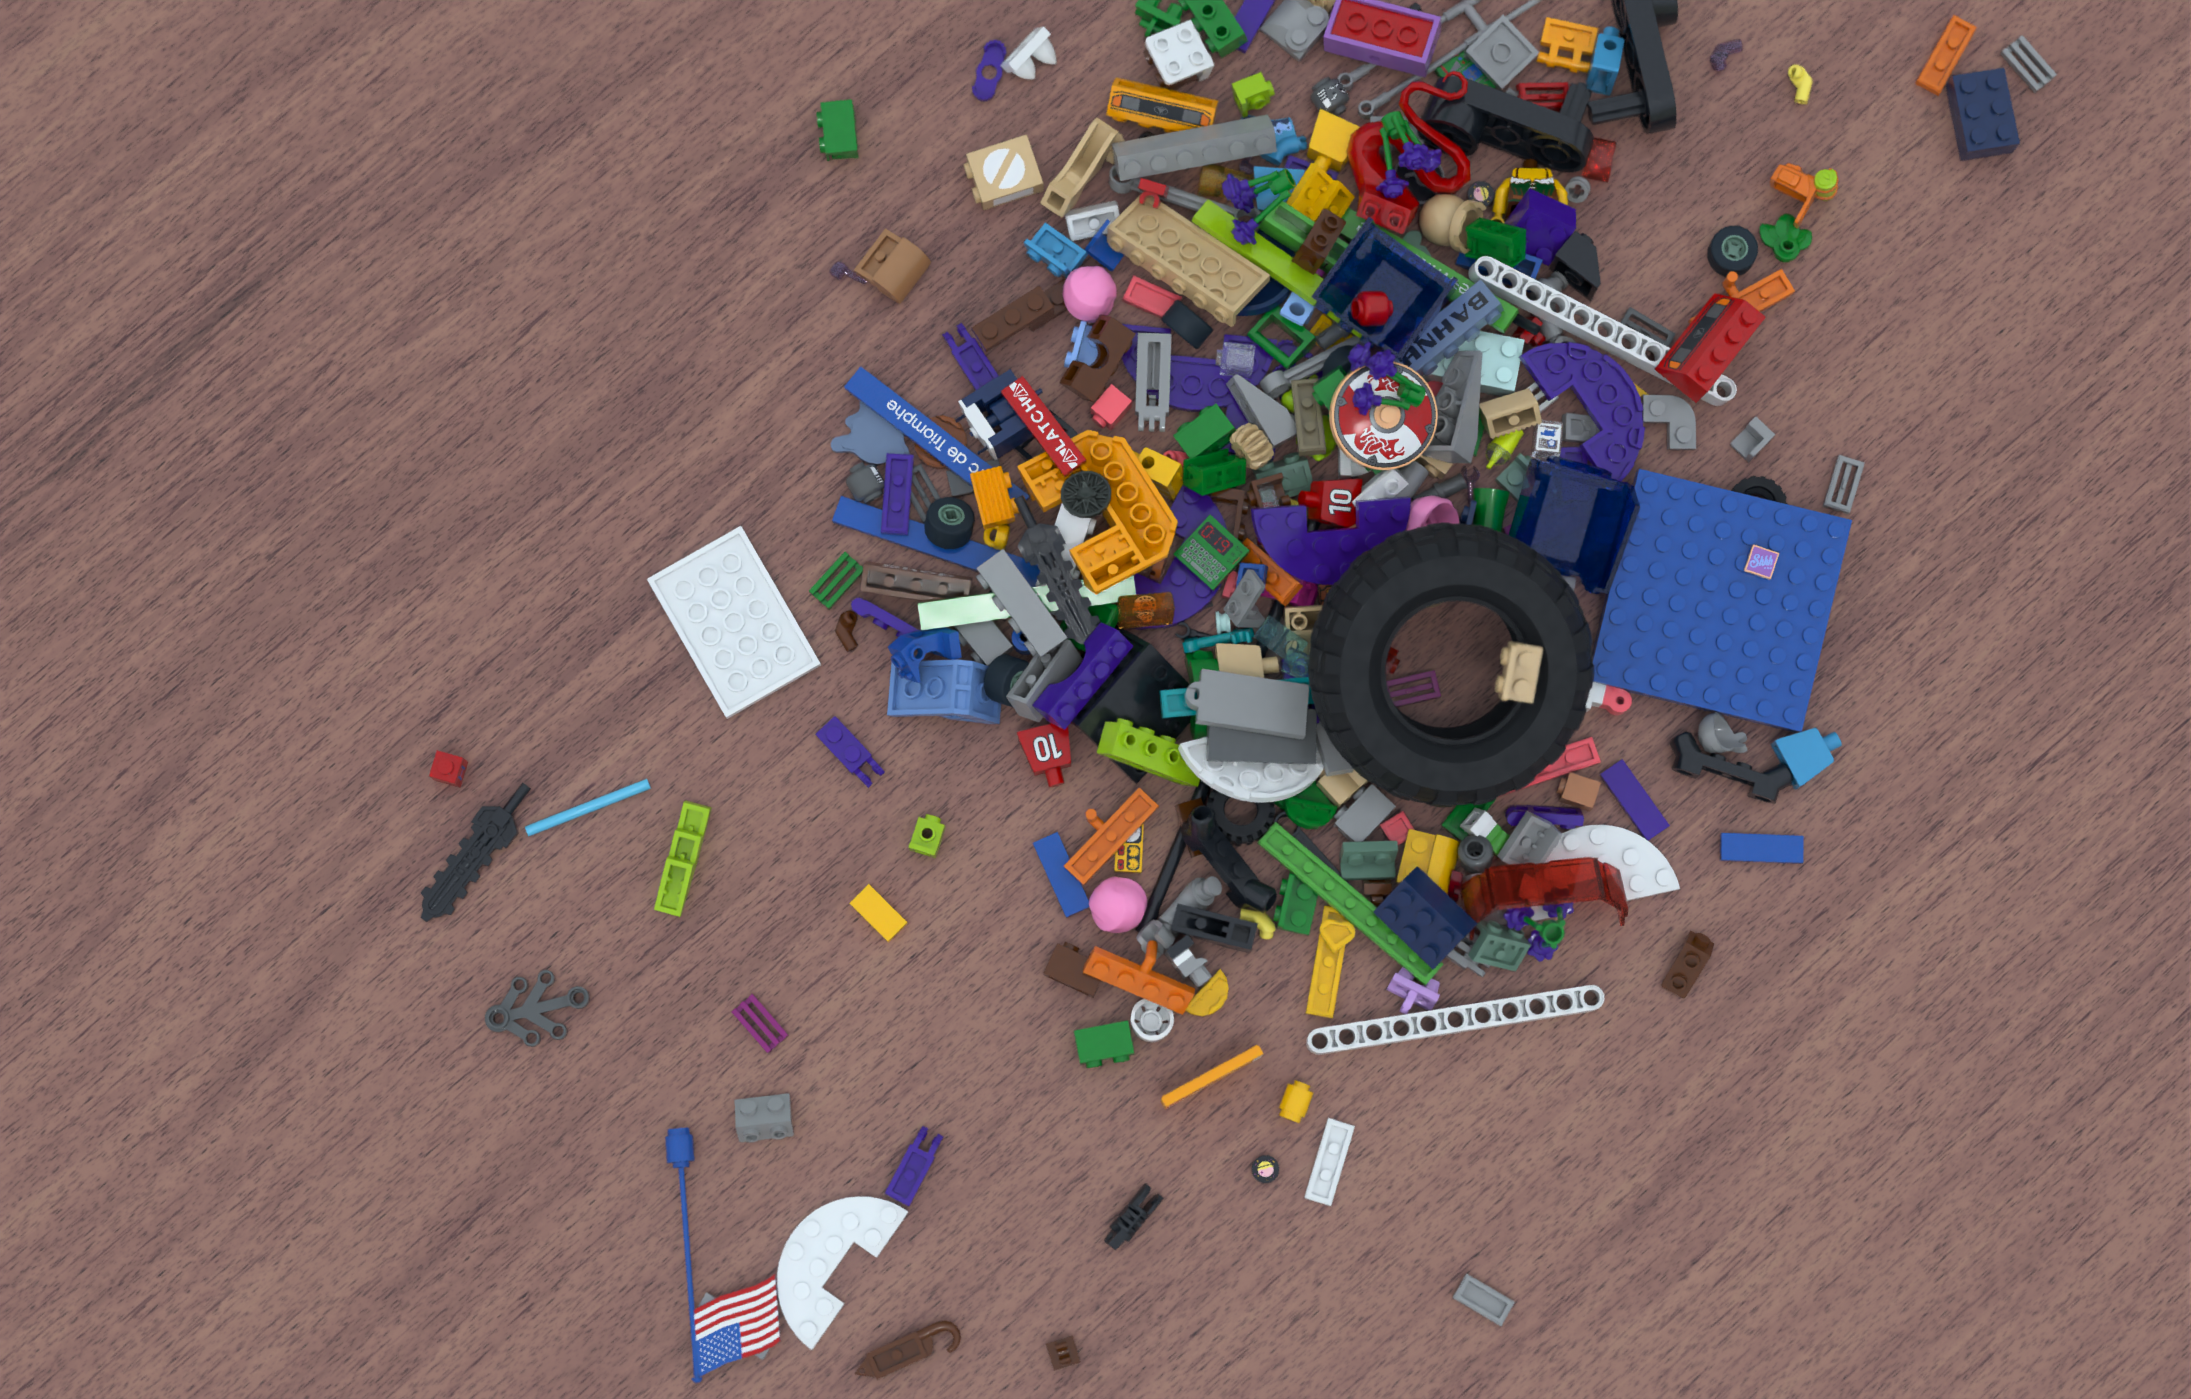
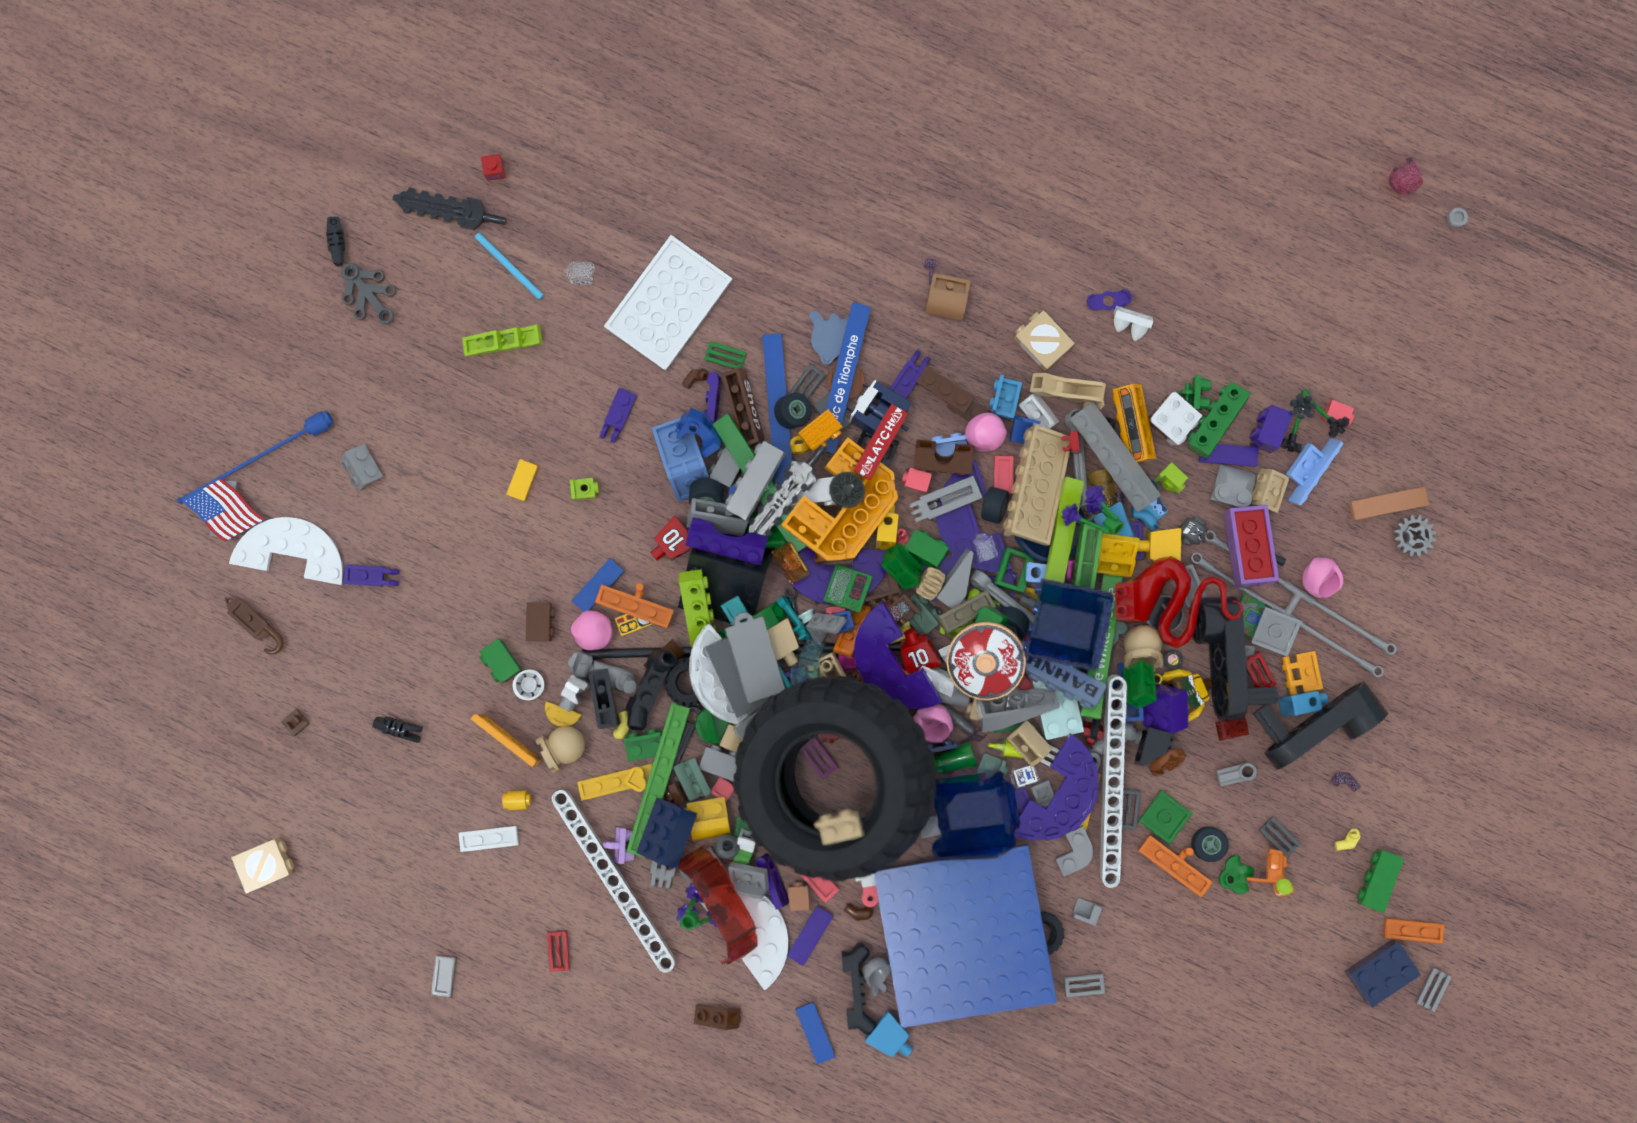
camera: 70 degrees right, 5 degrees up
(446, 1019) = (335, 240): none -> black hinge
(641, 717) = (580, 273): none -> clear brick
(745, 1006) = (413, 433): magenta tile -> none
(838, 129) = (1023, 220): green hinge -> none
(865, 483) = (796, 344): dark grey head -> none
(897, 494) = (797, 368): dark purple tile -> none
(1139, 978) = (548, 665): orange plate -> none
(1252, 1007) = (563, 746): none -> tan tile
(1265, 1169) = (466, 799): tile -> none
(1319, 241) = (1087, 567): reddish brown bracket -> none
(1371, 308) = (1055, 621): red head -> none
(1380, 367) = (1010, 644): dark purple plant -> none
(1414, 156) = (1168, 603): dark purple plant -> none
(1455, 885) = (702, 842): dark red tile -> none
(1499, 946) = (672, 888): sand green bracket -> none
(1537, 1142) = (557, 934): none -> red tile
(1577, 198) = (1208, 727): light grey bush -> none
(1607, 255) = (1167, 761): none -> dark orange tile
(1634, 725) = (859, 914): none -> reddish brown arm
(1658, 182) = (1234, 774): none -> light grey piece
(1674, 292) = (1165, 817): none -> green tile
(1709, 344) = (1135, 856): red slope -> none
(1754, 155) = (1290, 848): none -> dark grey tile
(1761, 562) = (1000, 954): tile -> none
(1866, 66) = (1379, 880): none -> green brick

